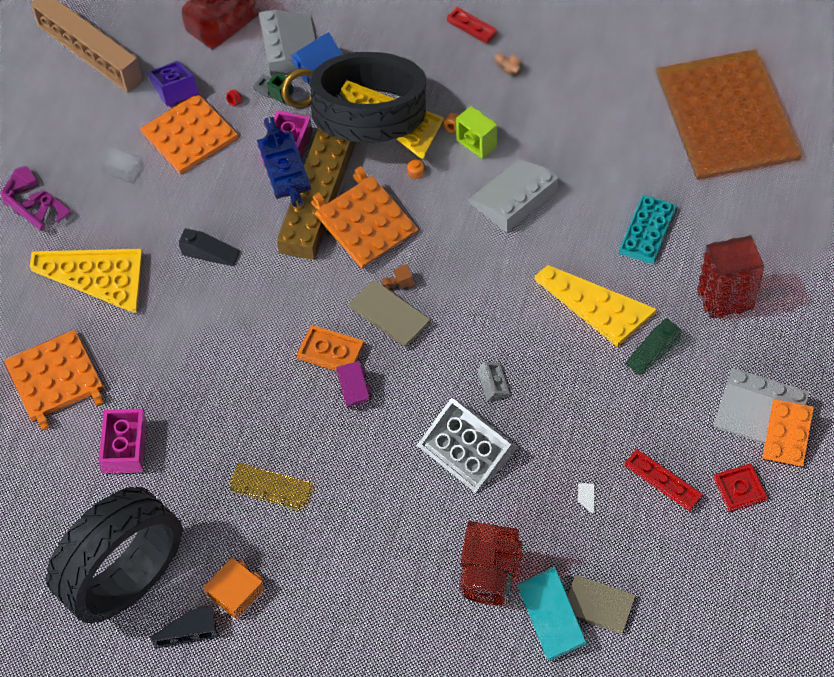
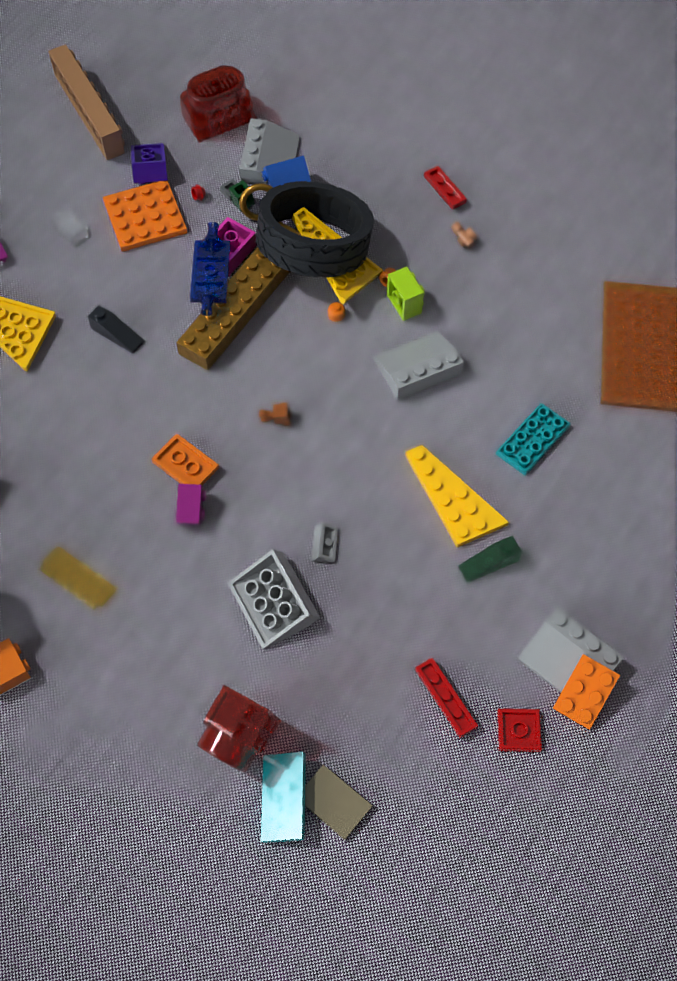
camera: 15 degrees right, 5 degrees up
(364, 220) = (266, 347): orange plate -> none
(389, 313) = (254, 445): dark tan tile -> none
(586, 496) = (367, 688): white sticker -> none
(730, 276) = (588, 514): clear red brick -> none

